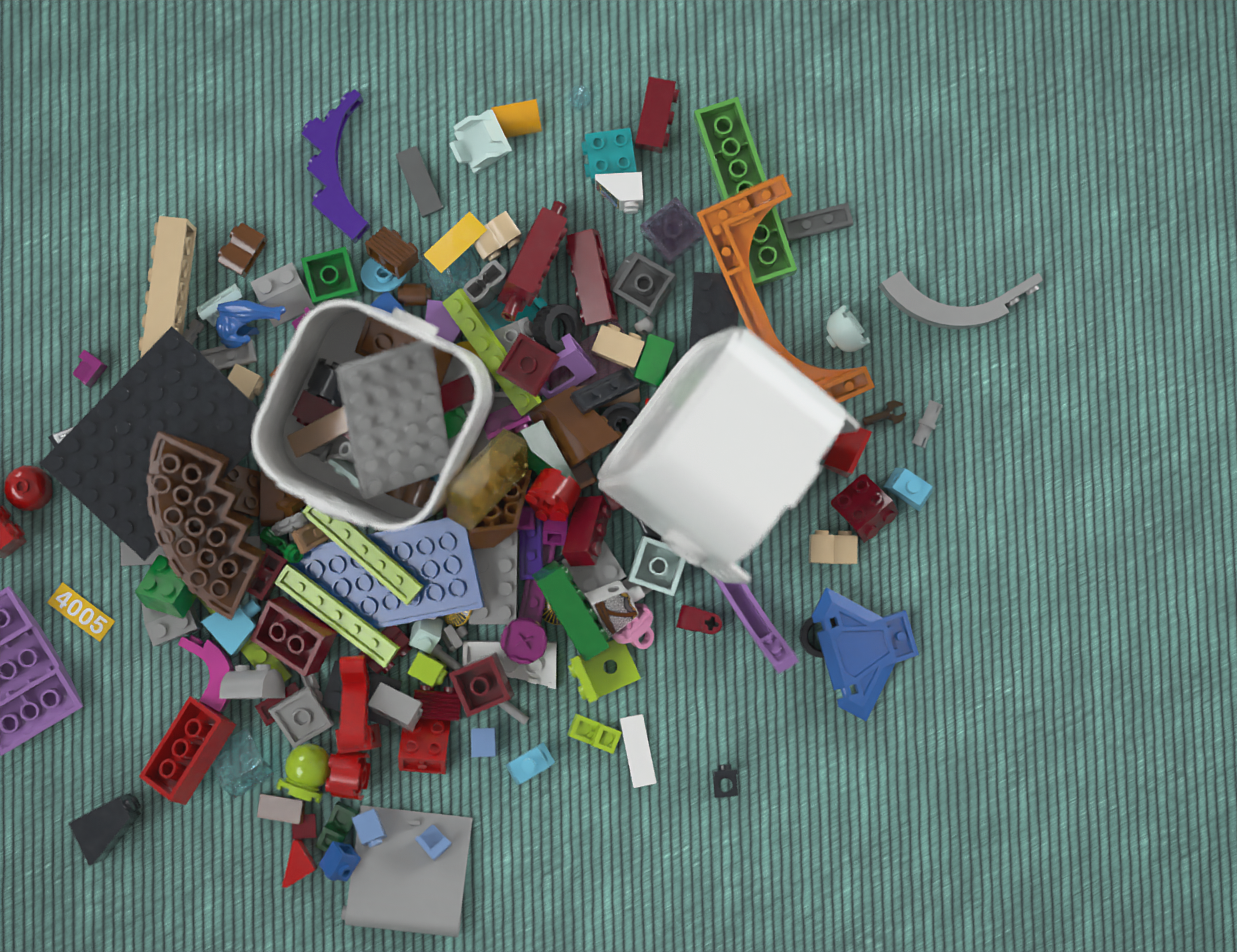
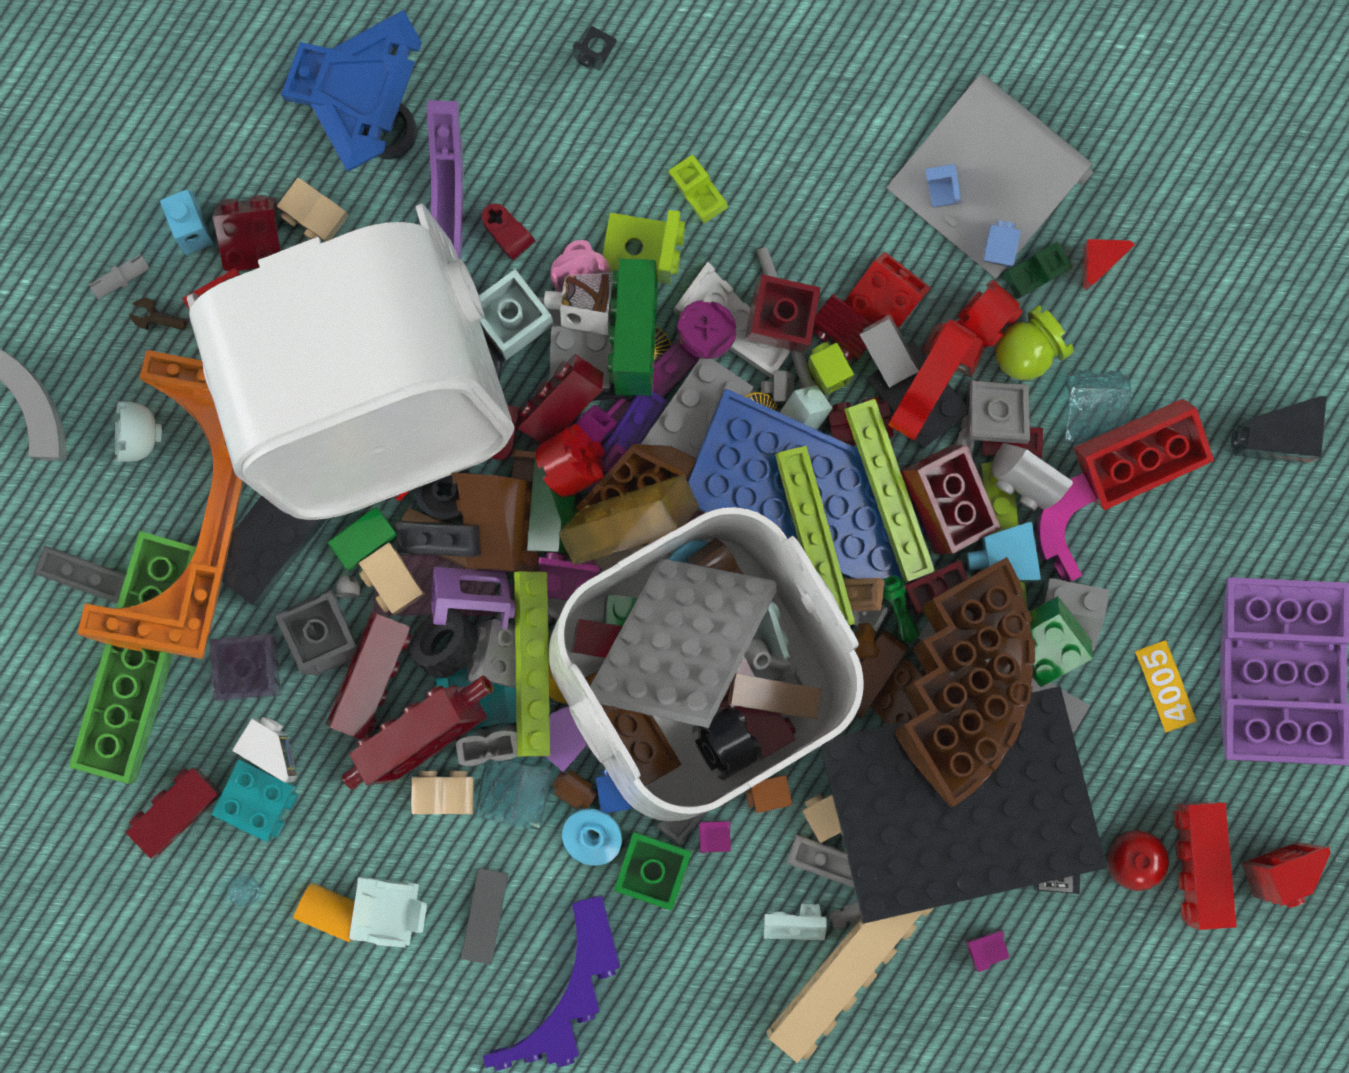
camera: 145 degrees left, 0 degrees up
(234, 317) = (788, 891): blue hair -> none
(242, 249) = (731, 969): reddish brown brick -> none
(281, 808) = (1083, 329): tile -> none
(285, 289) = (719, 887): light grey slope -> none
(289, 524) = (877, 622): light grey axle -> none
(307, 829) = (1070, 296): dark red tile -> none
(339, 861) = (1056, 231): blue brick -> none
(392, 252) = (566, 852): reddish brown brick -> none
(455, 242) = (490, 813): yellow sticker -> none
(483, 742) = (821, 254): medium blue panel -> none
(528, 364) = (501, 618): dark red tile -> none
(530, 763) = (787, 200): medium azure torso -> none
(638, 750) = (664, 140): white tile -> none

